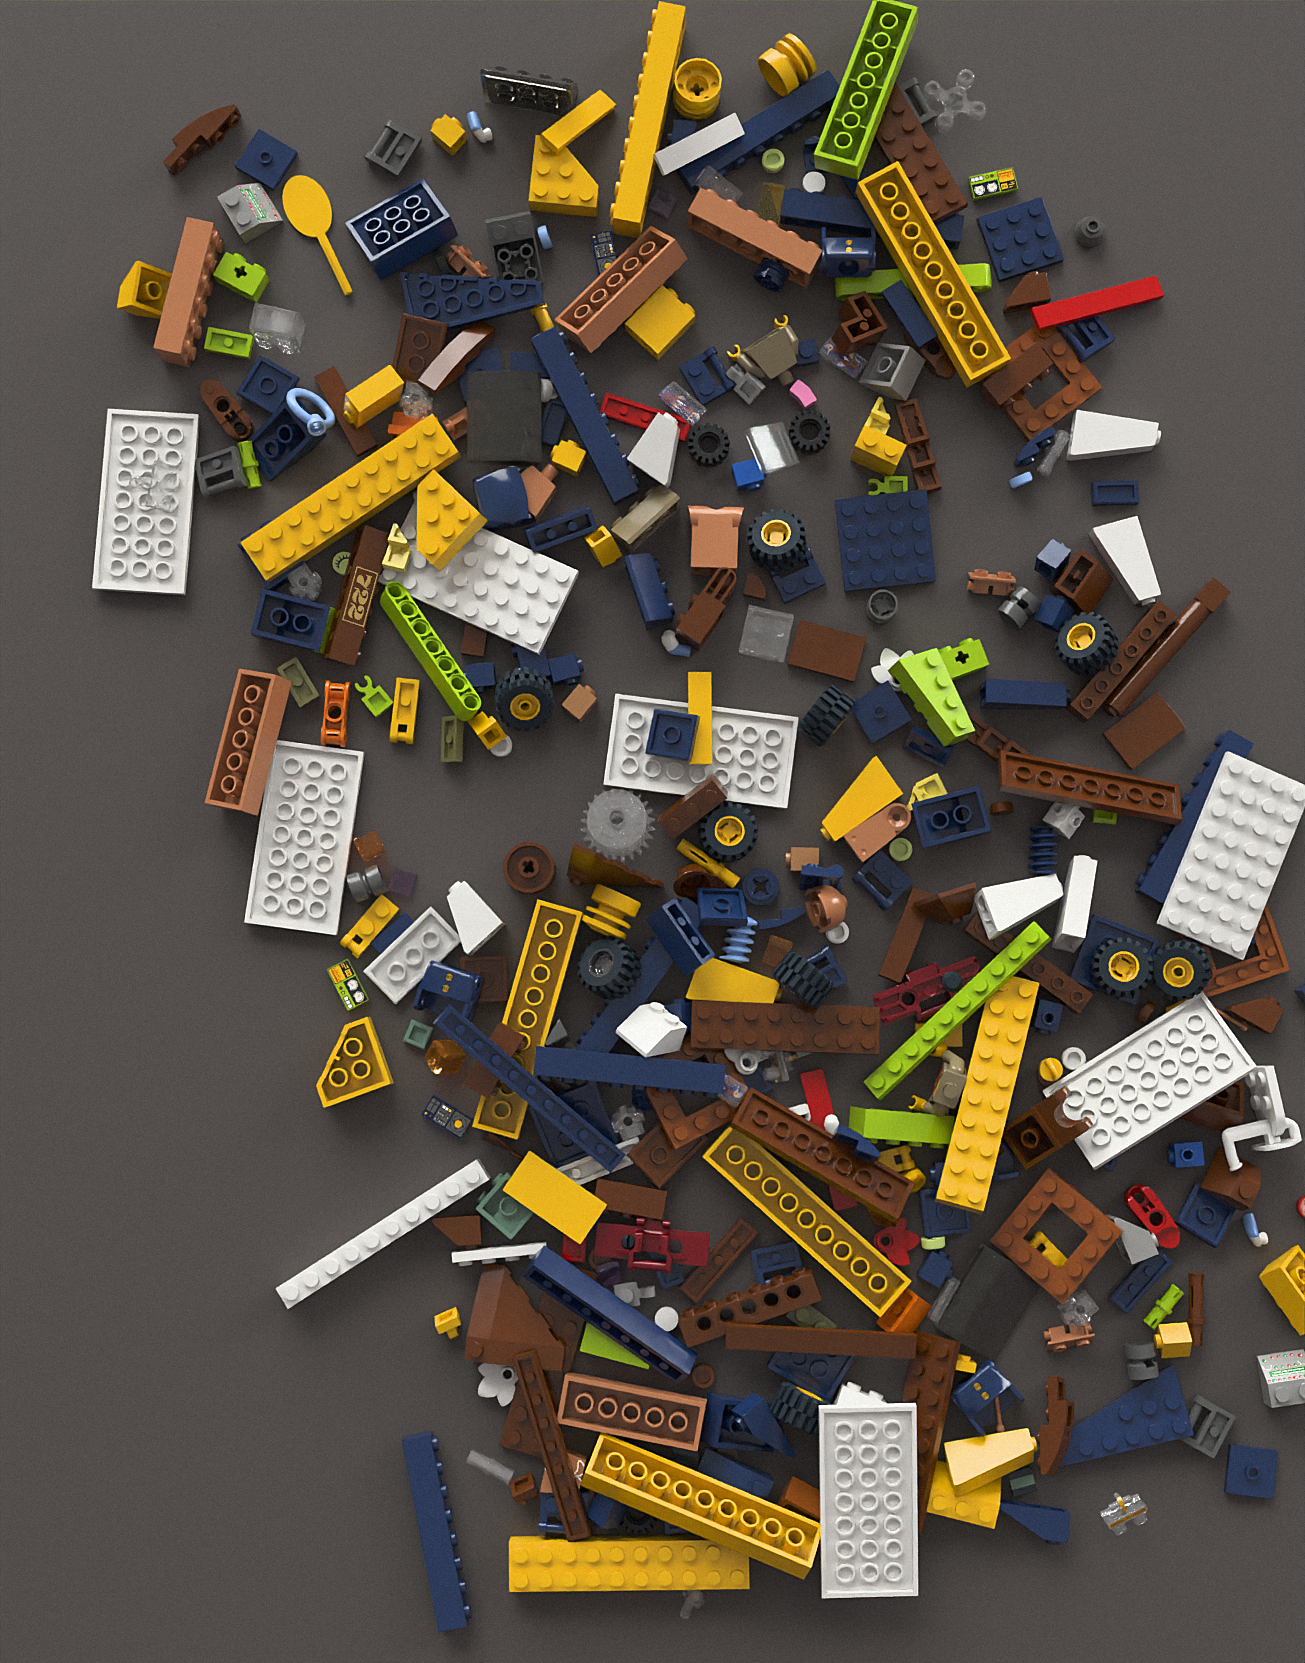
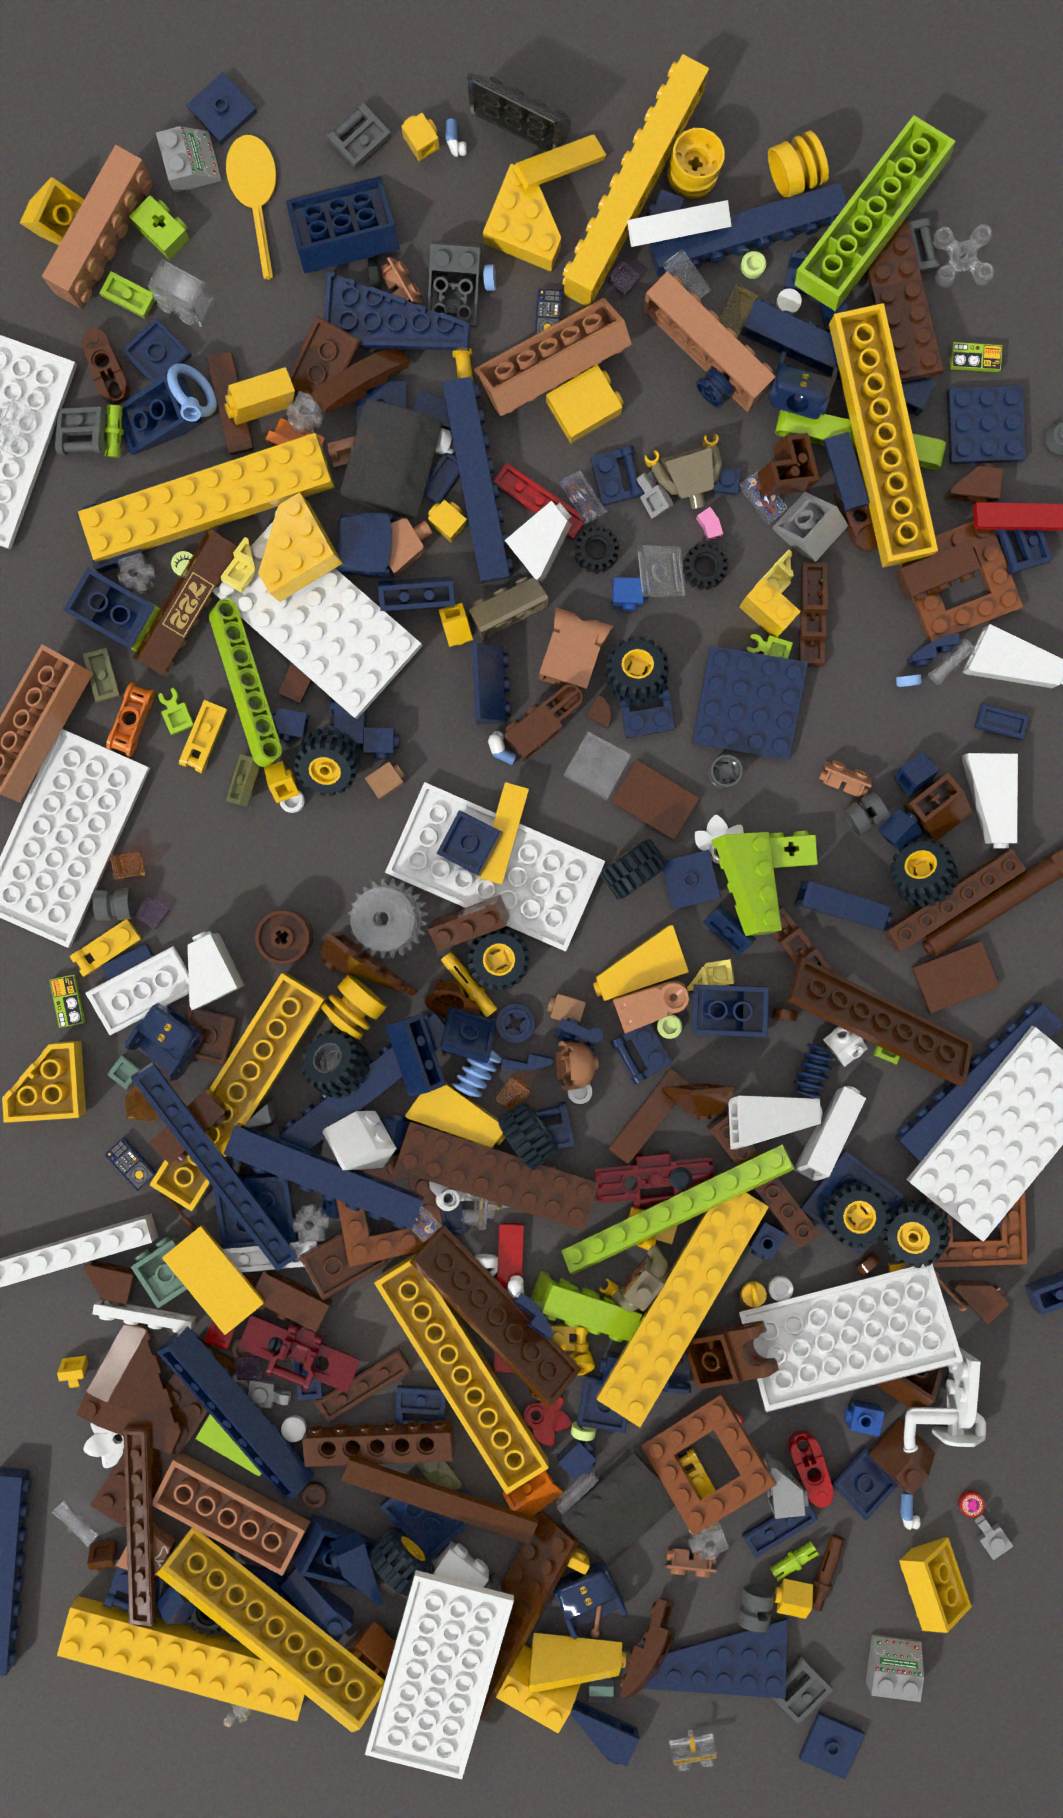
camera: 20 degrees right, 5 degrees up
(206, 129) = (166, 55): reddish brown slope -> none

